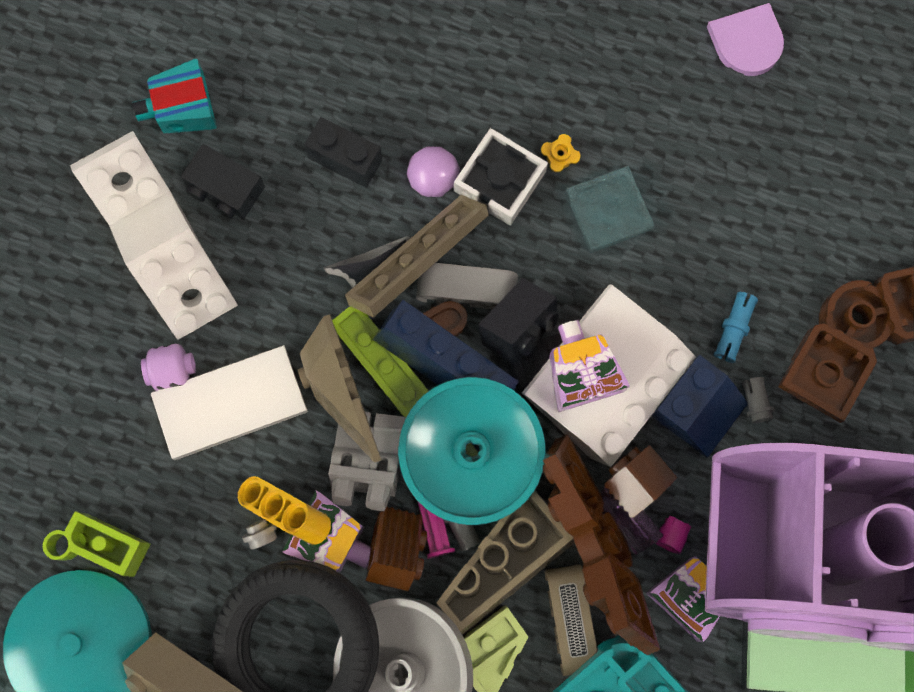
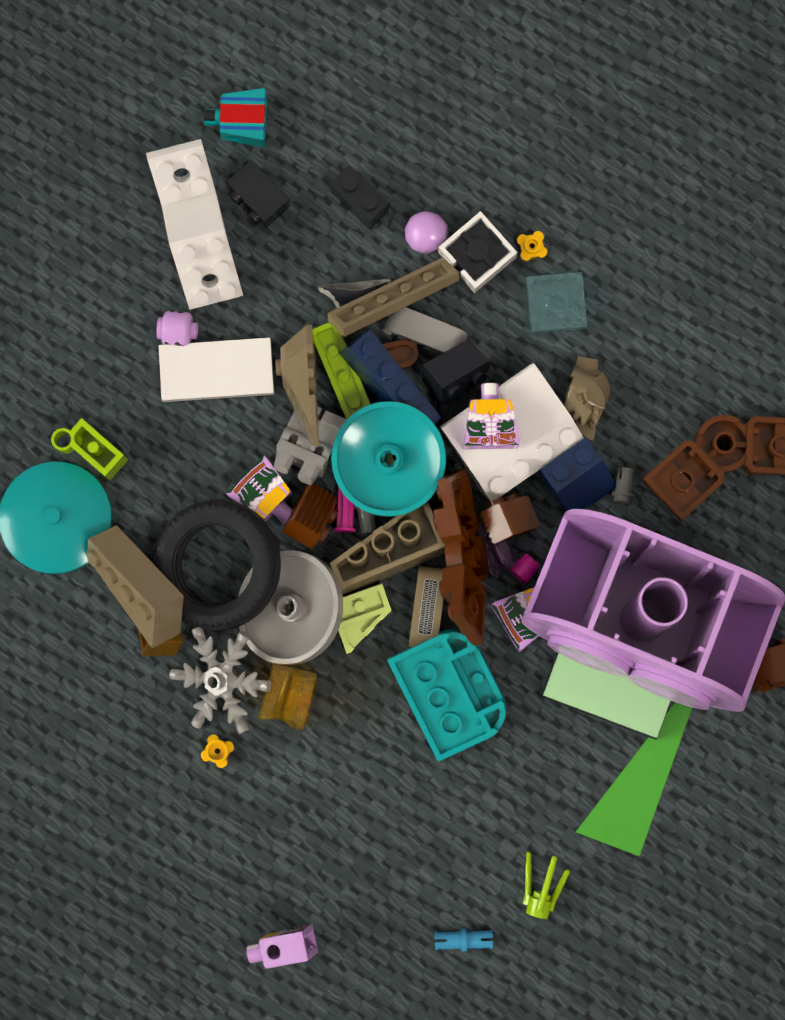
camera: 20 degrees right, 5 degrees up
(259, 534) = (212, 476): light grey plate -> none
(284, 510) = (236, 462): yellow beam -> none
(681, 304) = (587, 395): none -> dark tan piece
(736, 327) = (626, 424): dark azure pin -> none
(748, 40) = (714, 195): lavender tile -> none

